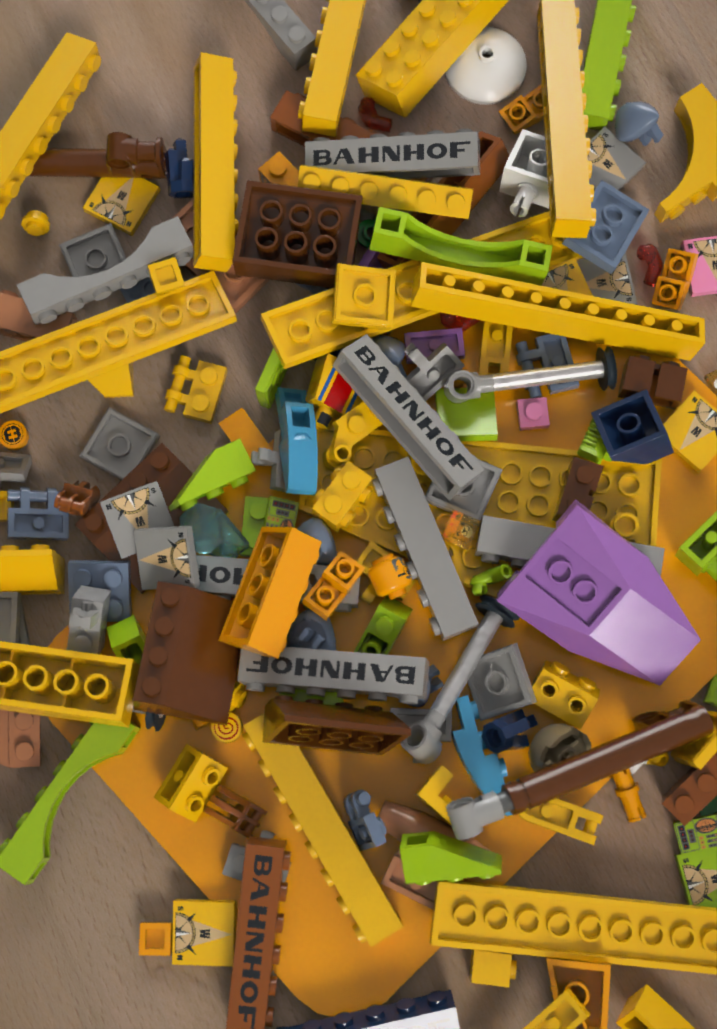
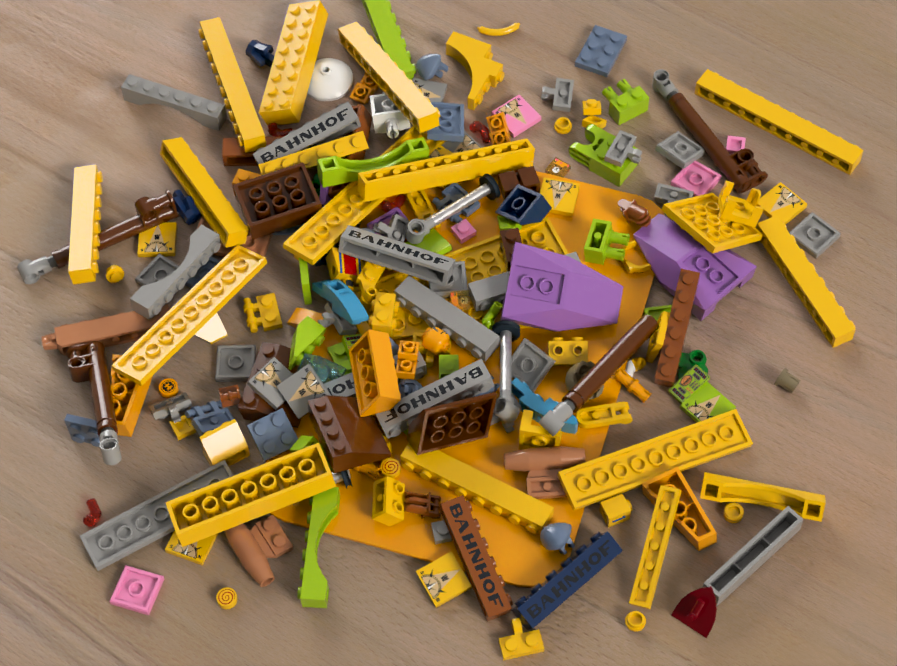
camera: 30 degrees left, 20 degrees down
(88, 619) = (277, 442): light grey hinge -> none
(155, 938) = (417, 598): light orange plate -> none
(165, 276) = (213, 256): yellow plate -> none
(364, 296) = (335, 208): yellow tile -> none
(365, 826) = (503, 467): sand blue plate -> none
(383, 970) = (556, 536): none -> sand blue piece
(440, 857) = (548, 459): lime slope -> none
(500, 733) = (549, 385): dark blue rock -> none

